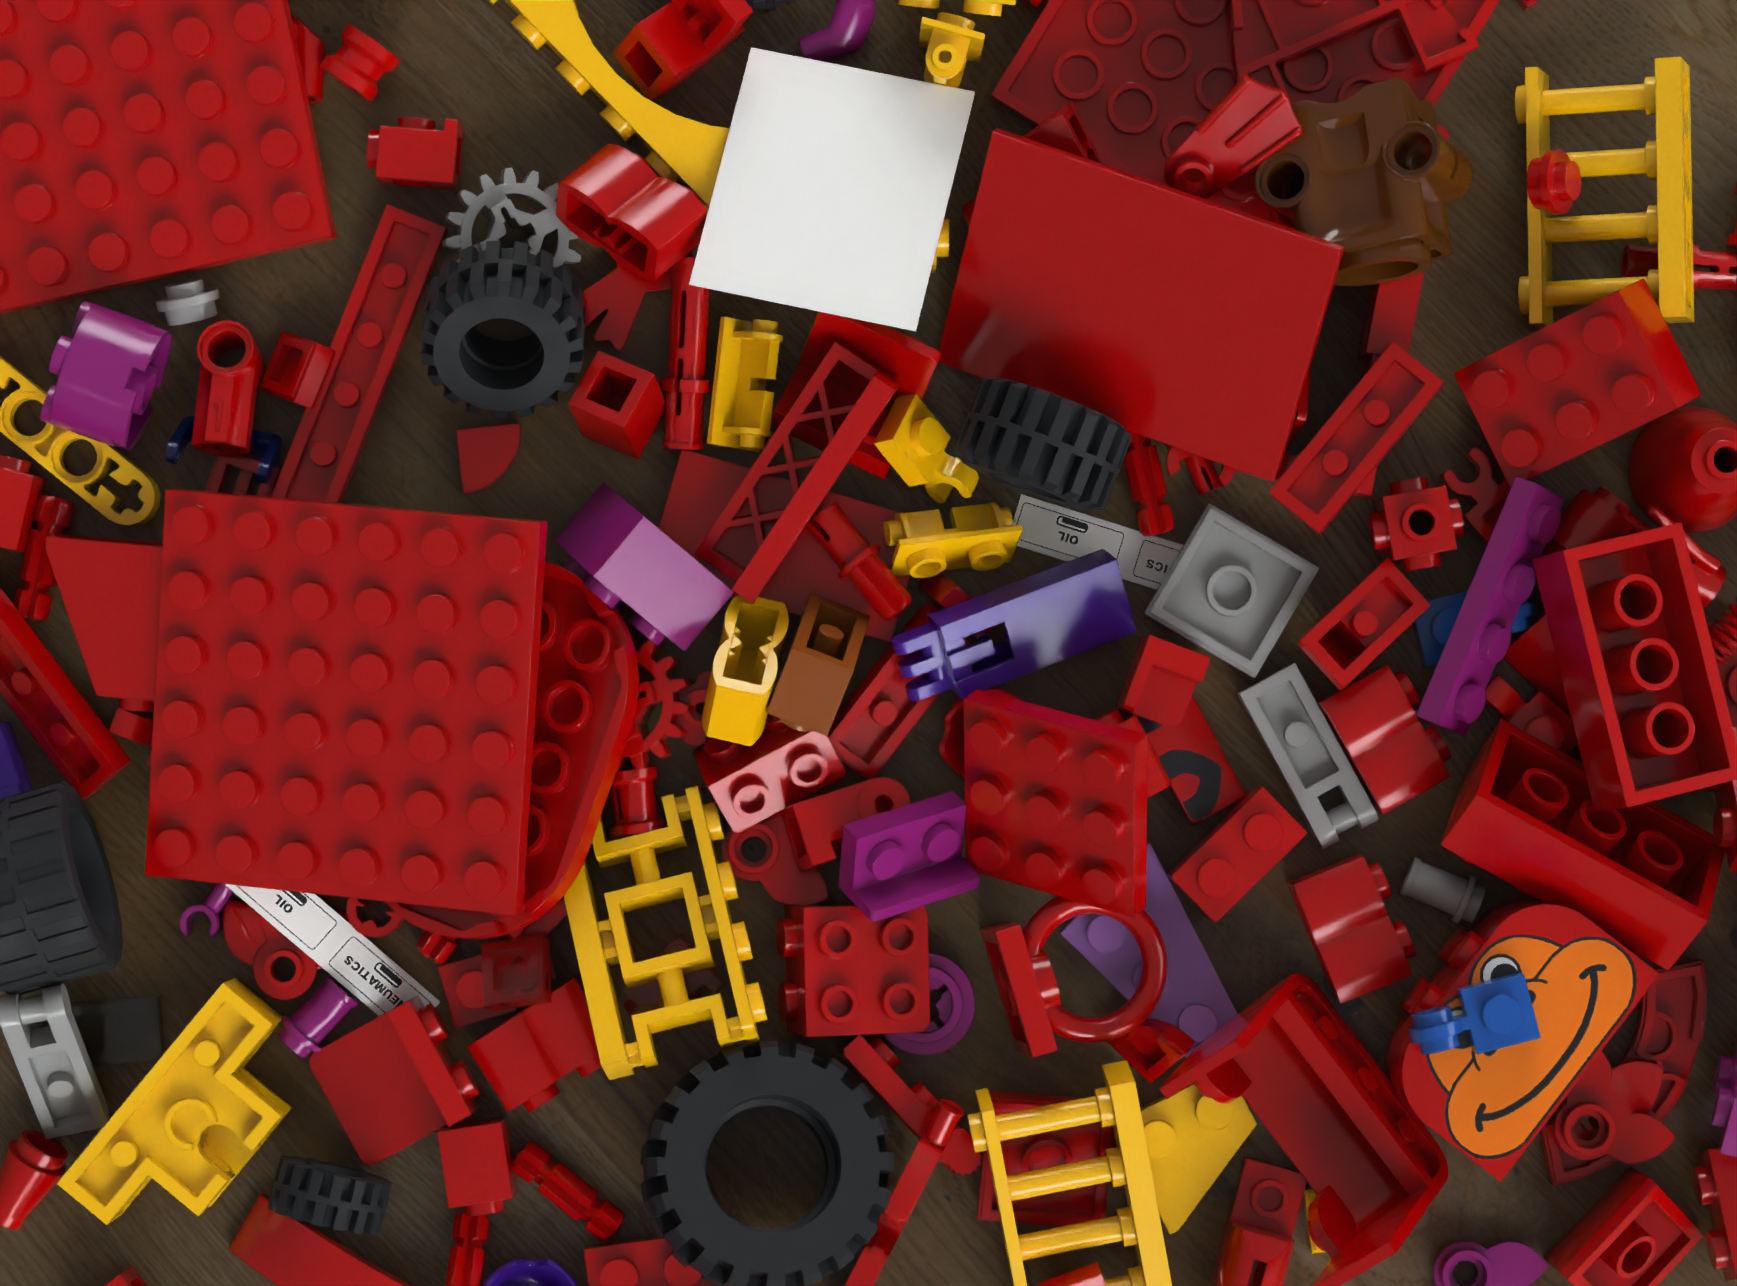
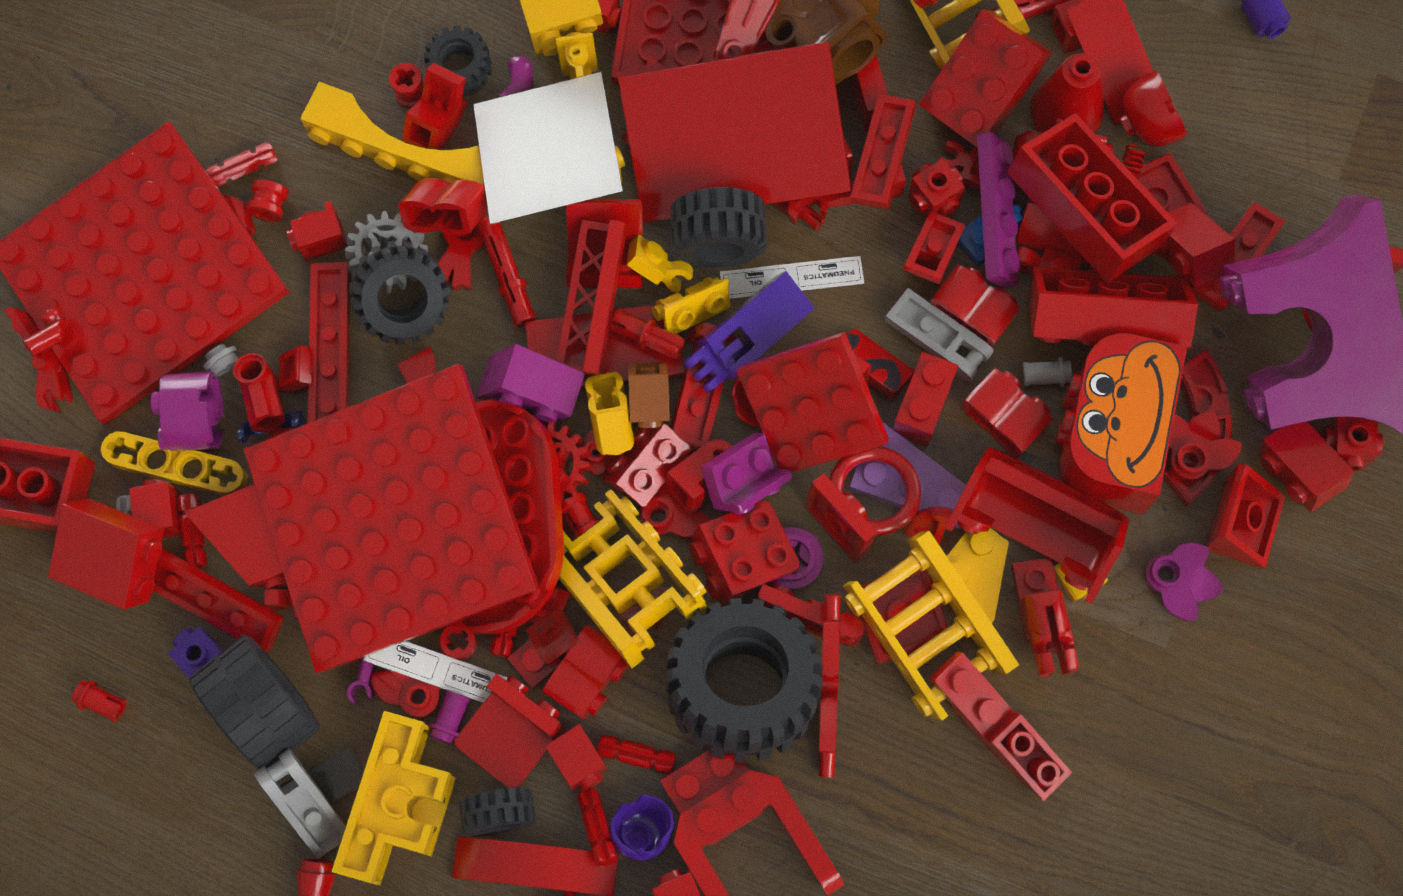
camera: 20 degrees left, 15 degrees down
(618, 405) = (479, 309): red brick -> none
(739, 400) = (544, 279): yellow hinge -> none
(1147, 486) = (785, 235): red axle -> none
(1161, 681) = (841, 313): red panel -> none
(1231, 590) = (855, 268): light grey plate -> none
(1494, 1015) = (1107, 404): blue plate -> none

